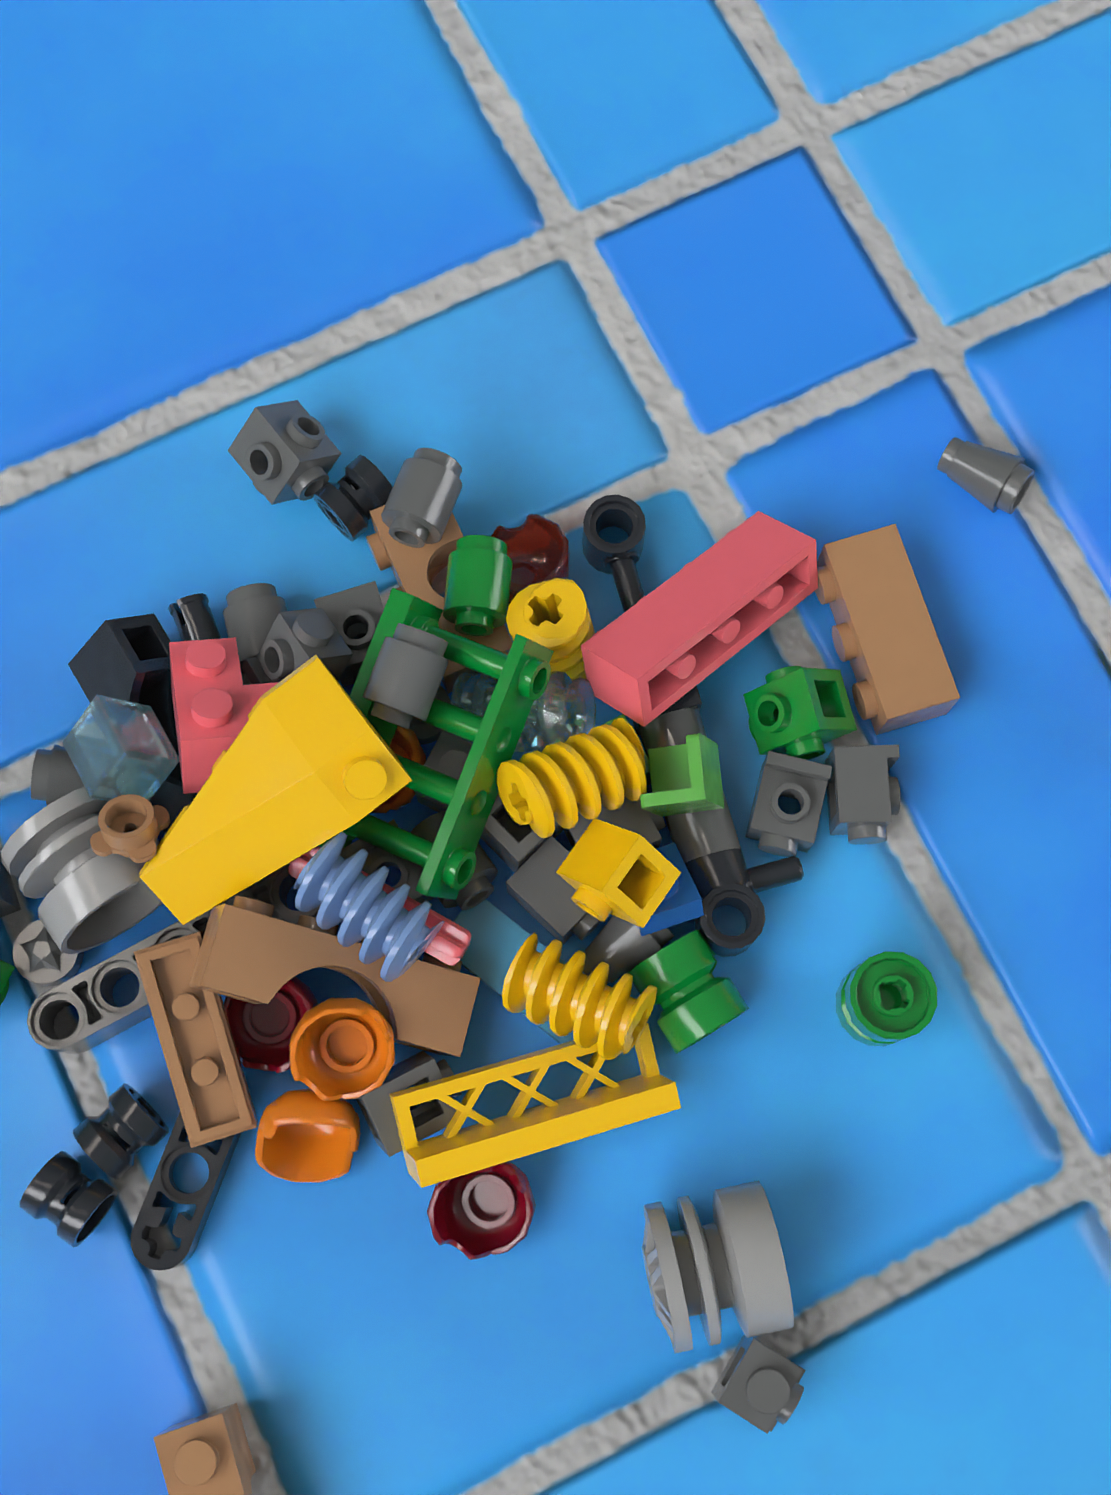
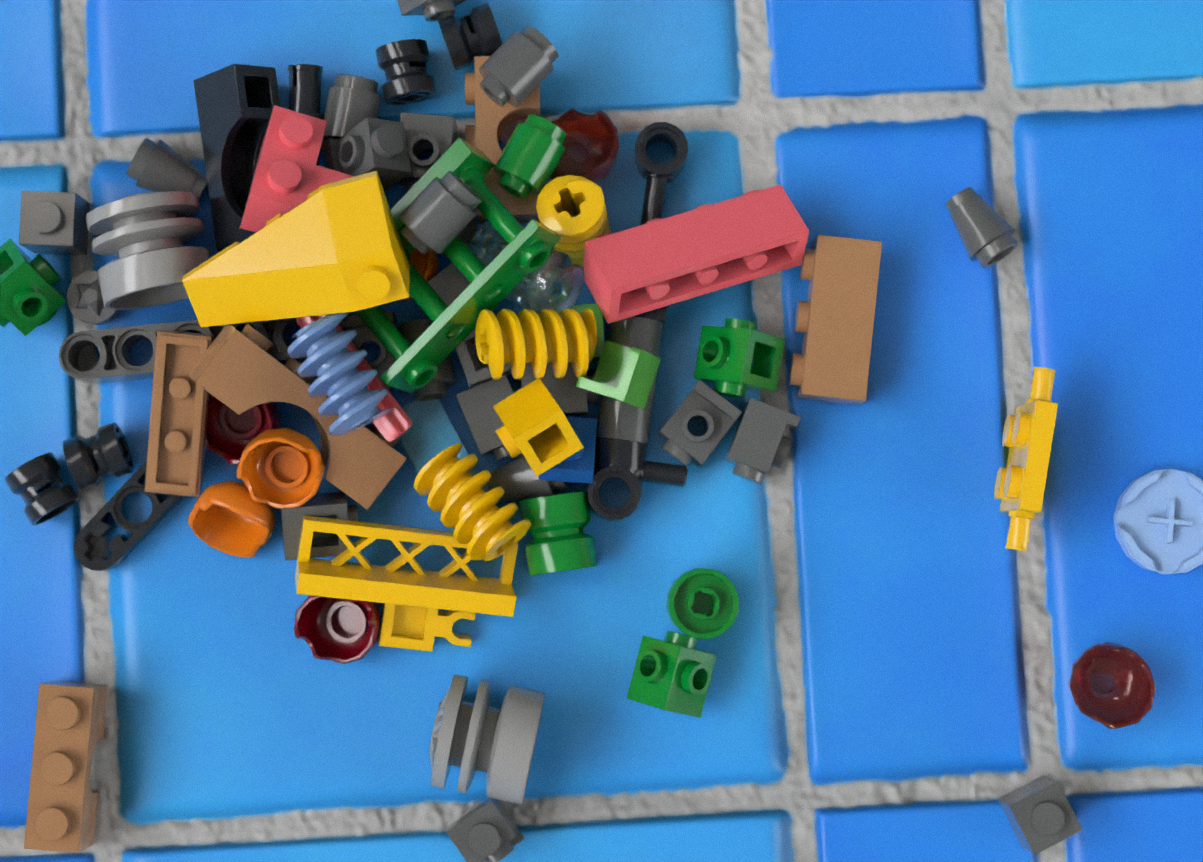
camera: 20 degrees right, 10 degrees up
(120, 749) = (205, 174): clear light blue brick -> none
(124, 815) = (192, 228): medium nougat plate -> none
(300, 562) = (406, 72): none -> black wheel
(573, 1168) = (417, 626): none -> yellow plate
(890, 1095) = (672, 674): none -> green brick

